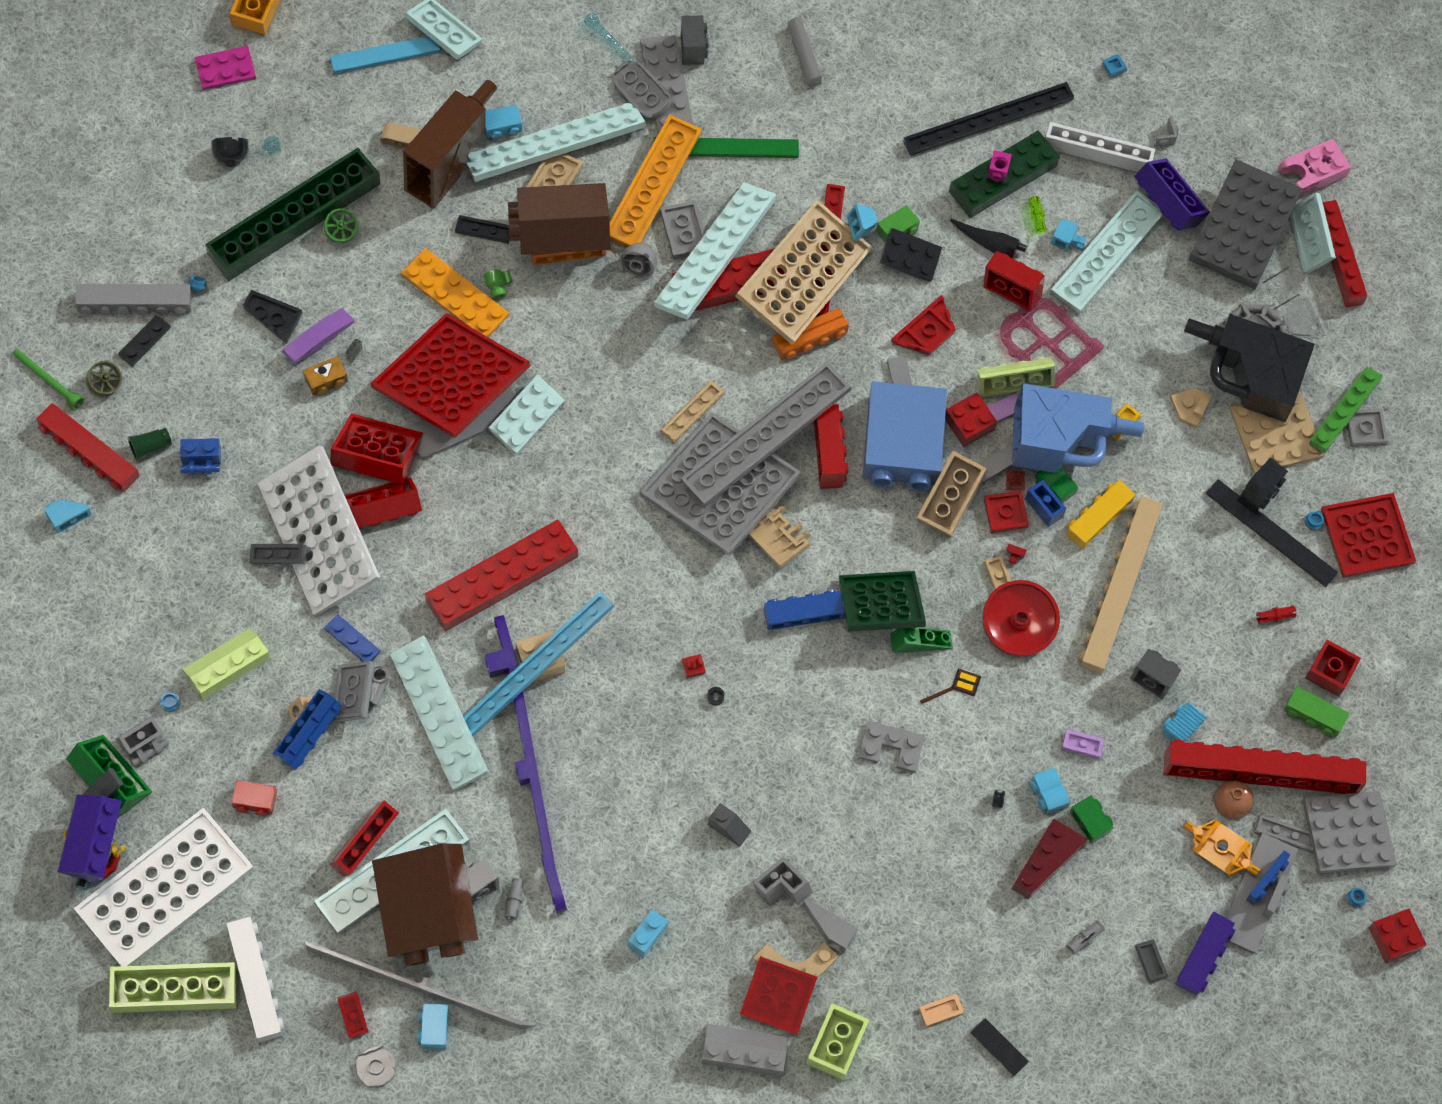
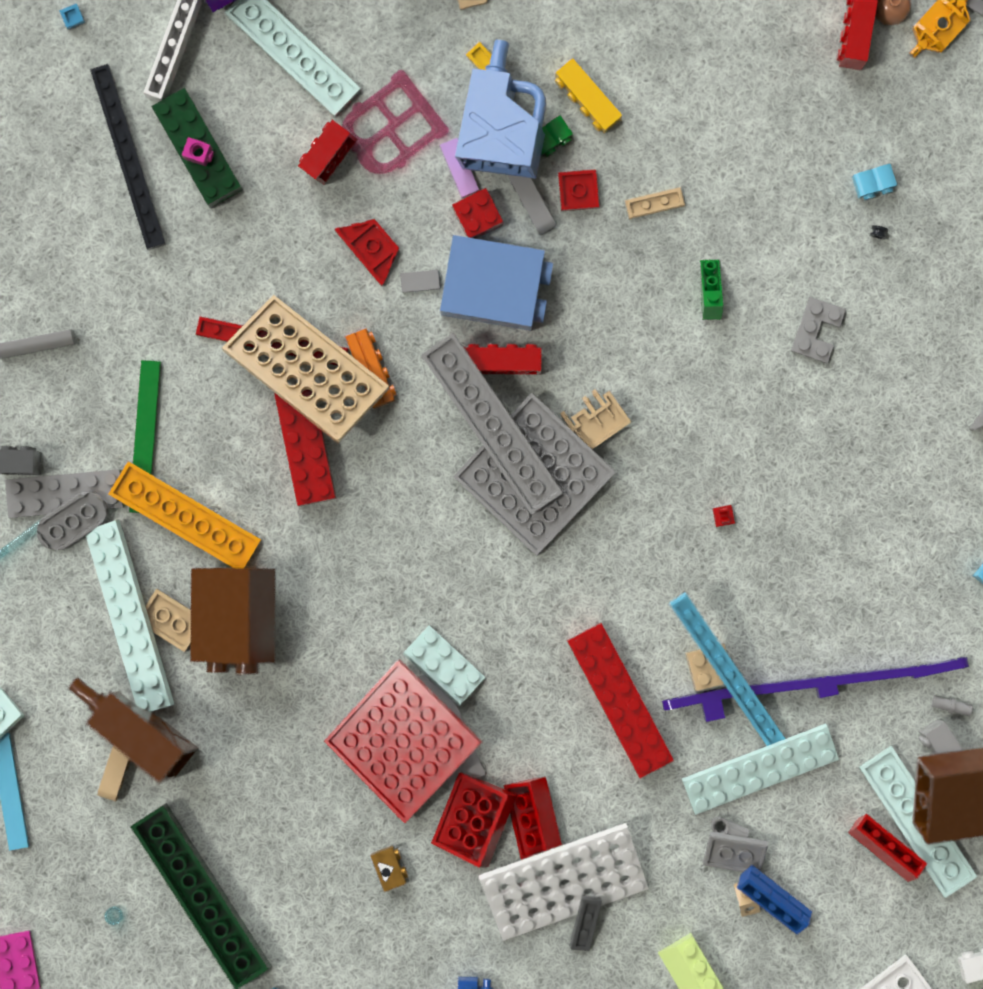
camera: 75 degrees left, 20 degrees up
(229, 150) = (120, 961): black cylinder -> none
(254, 797) = (837, 953): brick -> none
(274, 314) = (314, 918): black wing -> none
(317, 335) = (342, 874): medium lavender slope -> none
(341, 225) = (217, 847): bright green wheel -> none
(352, 639) = (676, 850): blue plate -> none
(354, 350) = (361, 838): clear smoke tile -> none
(455, 293) = (300, 730): light orange plate -> none
(482, 229) = (226, 698): black tile -> none
(495, 280) = (289, 687): bright green piece -> none
(503, 122) = (102, 671): medium azure brick -> none
(635, 258) = (275, 538): light grey cylinder -> none
(682, 227) = (240, 488): light grey plate -> none
(692, 411) = (448, 495): tan tile -> none
(715, 251) = (275, 458): light aqua plate -> none
(720, 699) = (761, 493): black bush -> none
(729, 824) = (891, 495): dark grey slope -> none
(782, 879) = (951, 447): light grey brick -> none
(803, 610) = (673, 402): blue brick -> none
(861, 221) = (247, 303): medium azure slope -> none
(881, 601) = (674, 324): dark green plate -> none
(902, 220) = (251, 265): bright green brick -> none
(910, 255) = (287, 256): black plate -> none
(952, 494) = (563, 242): tan brick -> none
(964, 682) = (755, 252): piece -> none
(992, 240) = (274, 165): black piece -> none
(1010, 377) = (434, 162): yellowish green slope -> none
(1015, 480) = (544, 177): clear red tile -> none
(1015, 552) = (624, 186): red tile -> none
(1021, 618) = (697, 188): red dish -> none
(1037, 214) = (244, 119): clear neon green pin -> none
(1045, 503) = (575, 149): blue brick -> none
(1050, 855) = (943, 192): dark red wedge -> none
(1066, 235) = (272, 92): medium azure brick -> none
(1083, 744) = (827, 143): lavender plate -> none
(1091, 819) = (906, 144): green brick -> none
(1121, 585) = (664, 85): tan brick -> none
(1155, 673) = (765, 63): dark grey brick -> none
(1184, 723) = (814, 43): medium azure brick -> none

